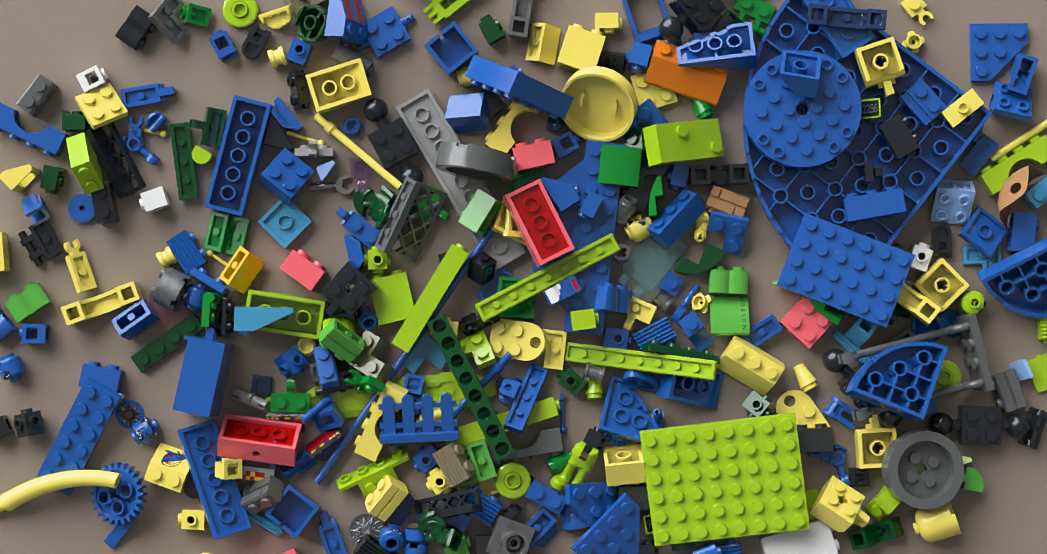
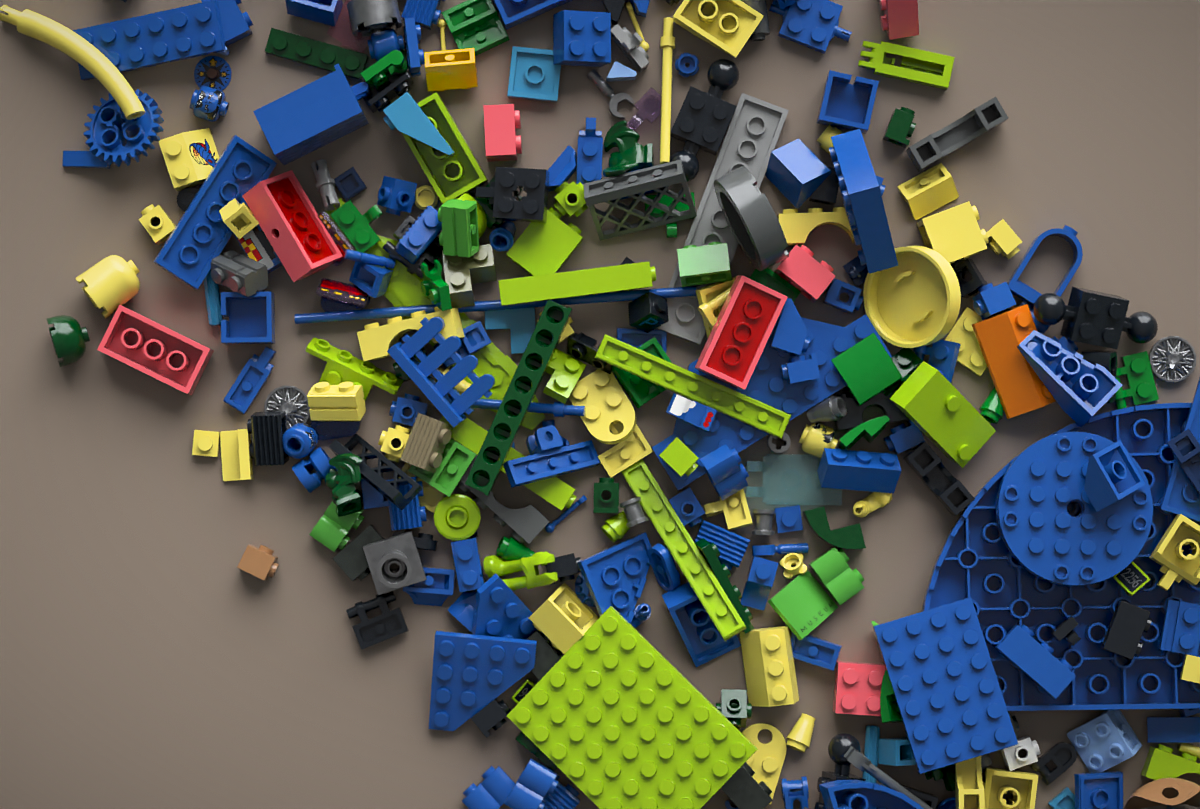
camera: 45 degrees right, 0 degrees up
(302, 464) = (303, 289): blue plate -> none
(726, 201) = (915, 510): medium nougat brick -> none
(731, 225) = (897, 535): blue plate -> none

